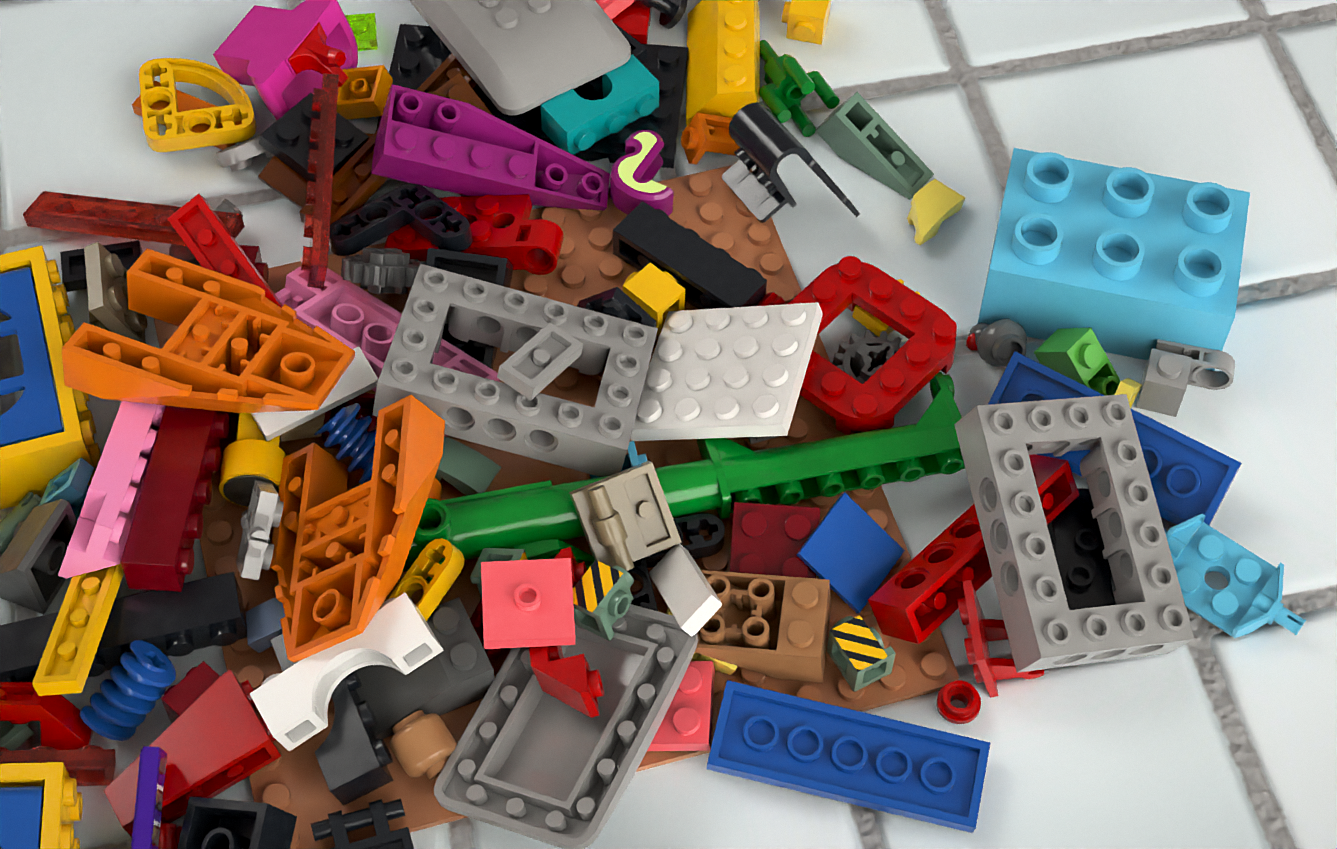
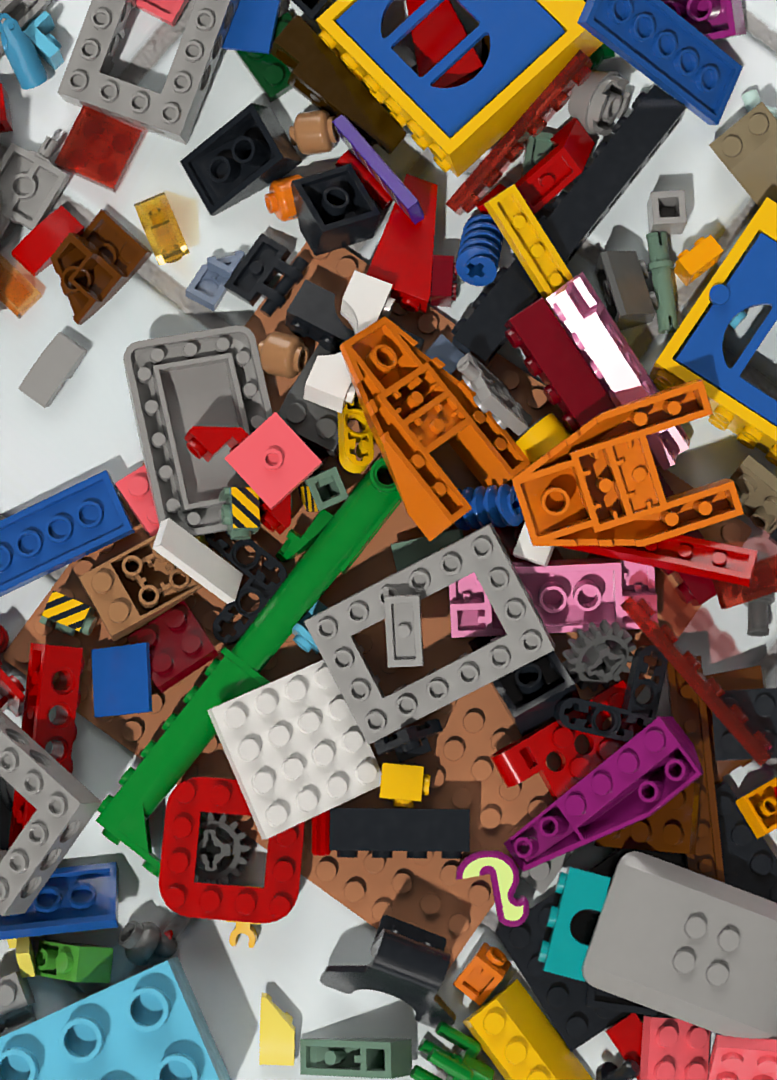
camera: 150 degrees right, 25 degrees up
(70, 486) = (646, 339): medium azure bracket -> none
(625, 516) = (271, 578): plate -> none

